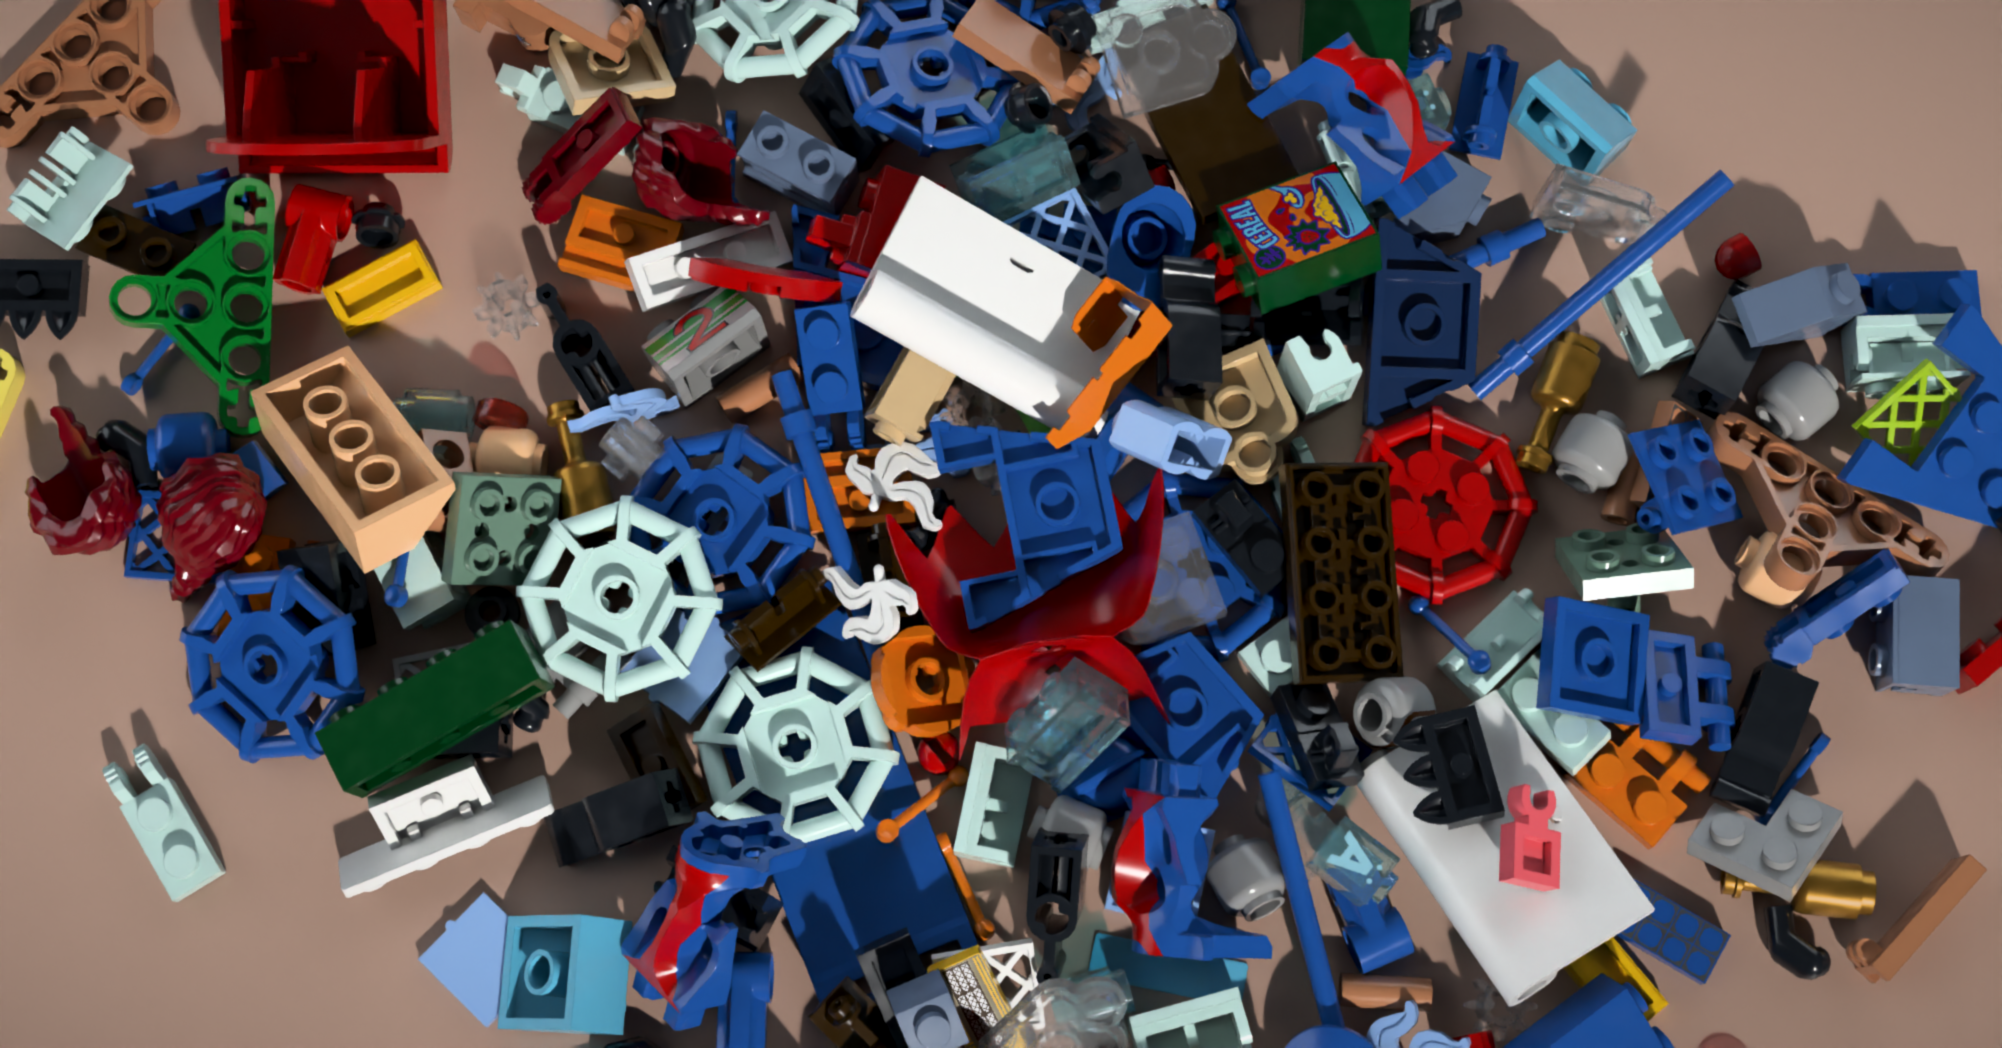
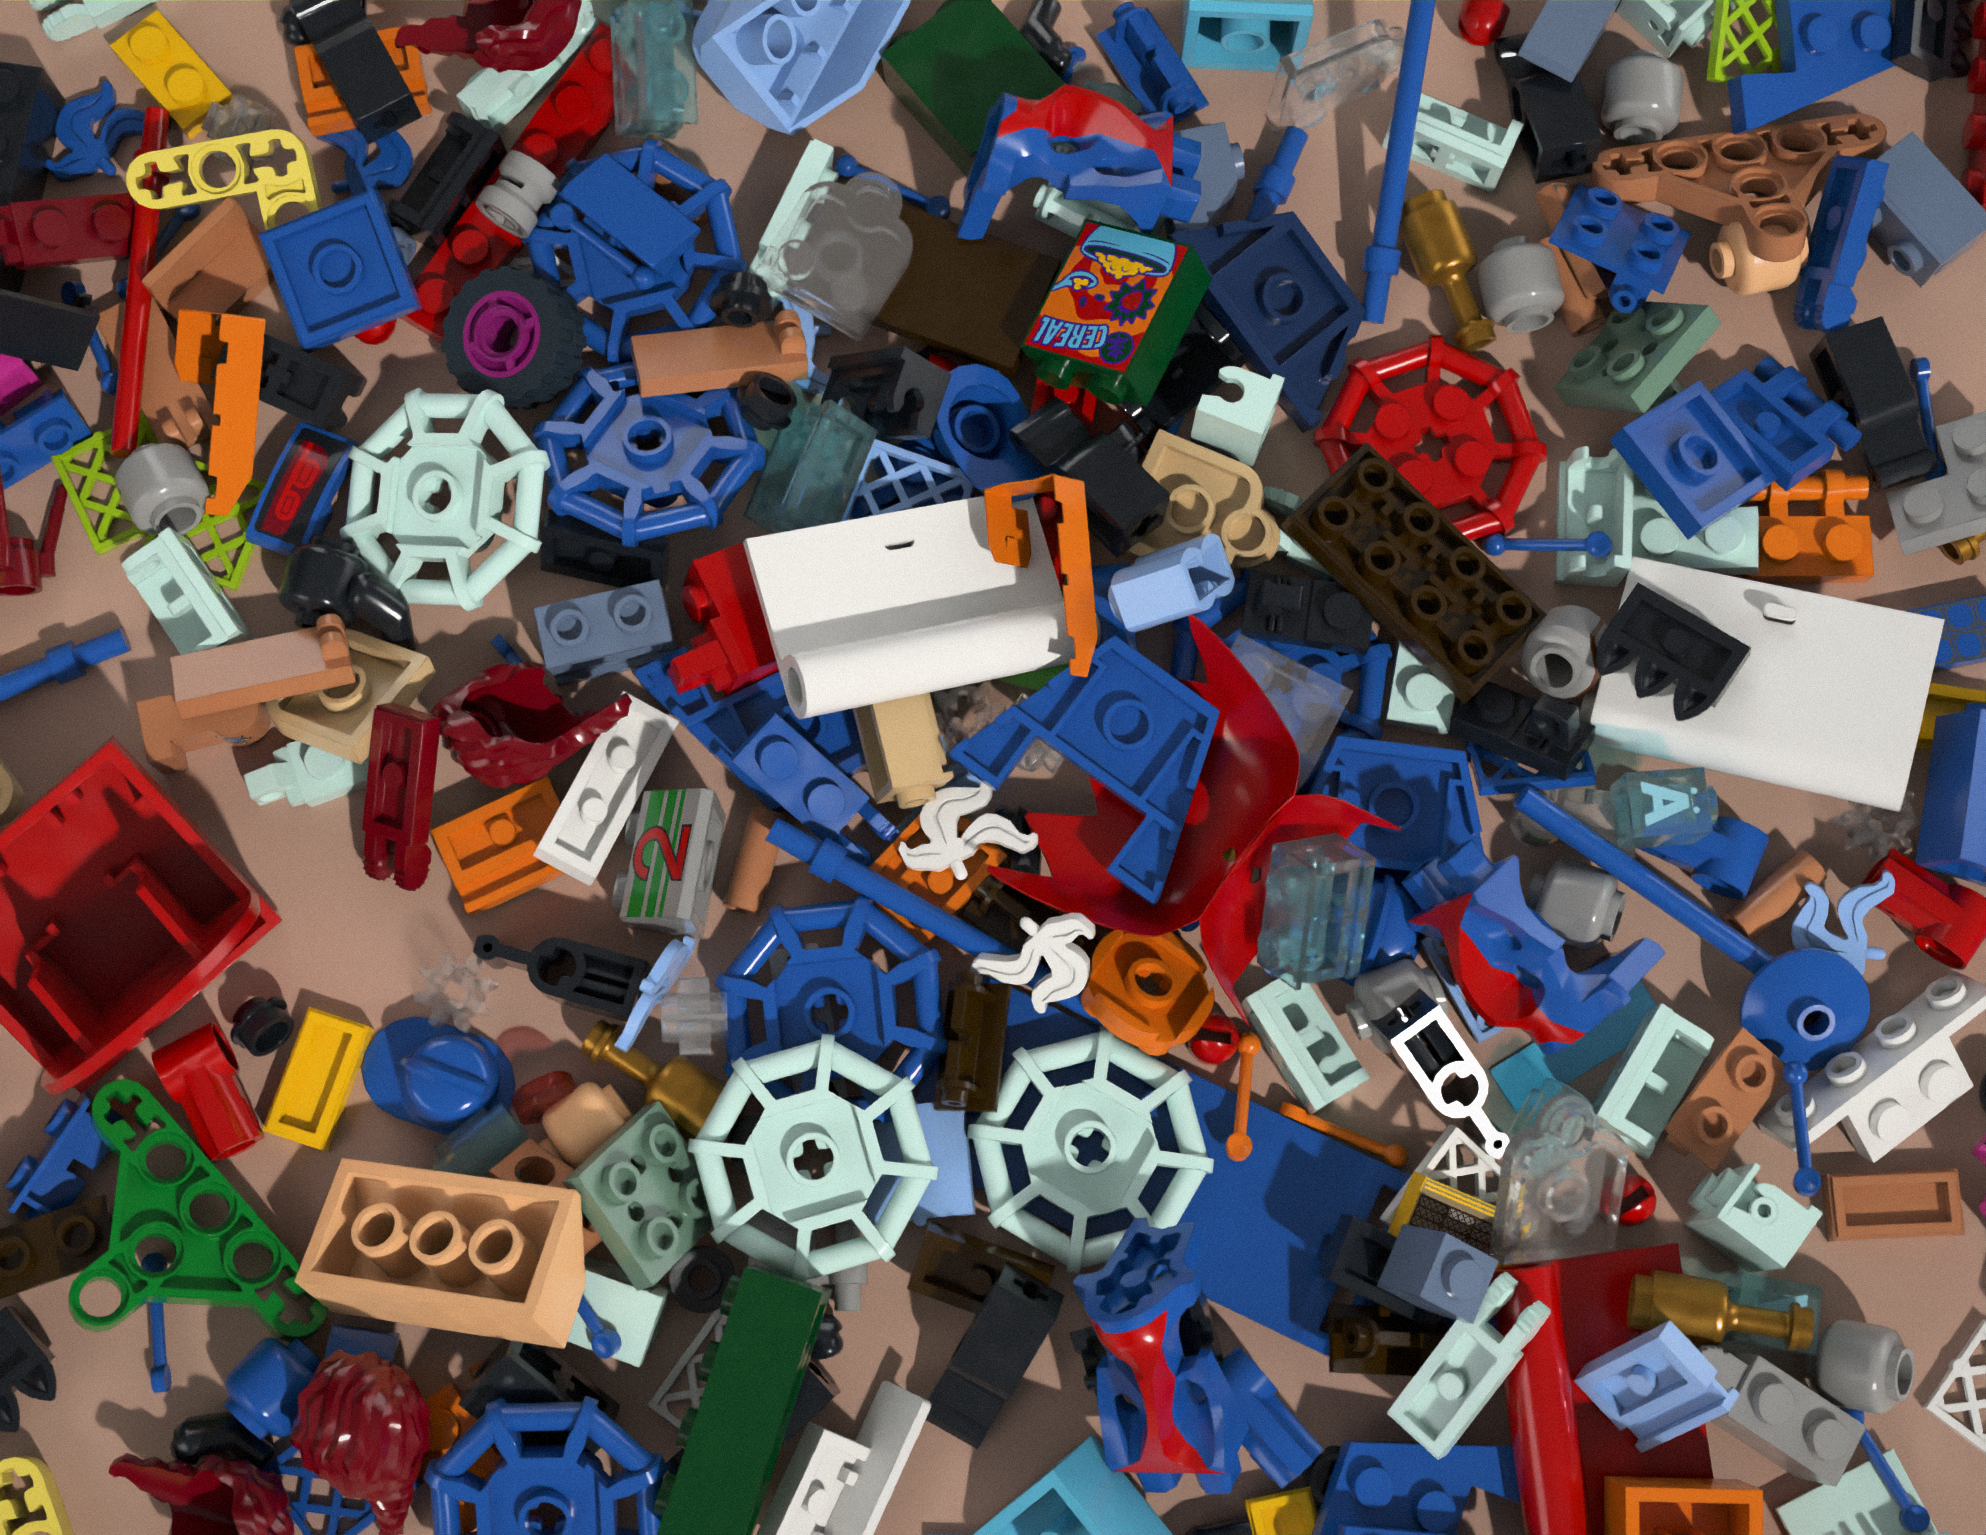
camera: 45 degrees left, 0 degrees up
(452, 346) = (435, 1074): none -> blue piece
(765, 280) = (685, 755): red tile -> none
(1527, 846) = (1797, 659): coral plate -> none

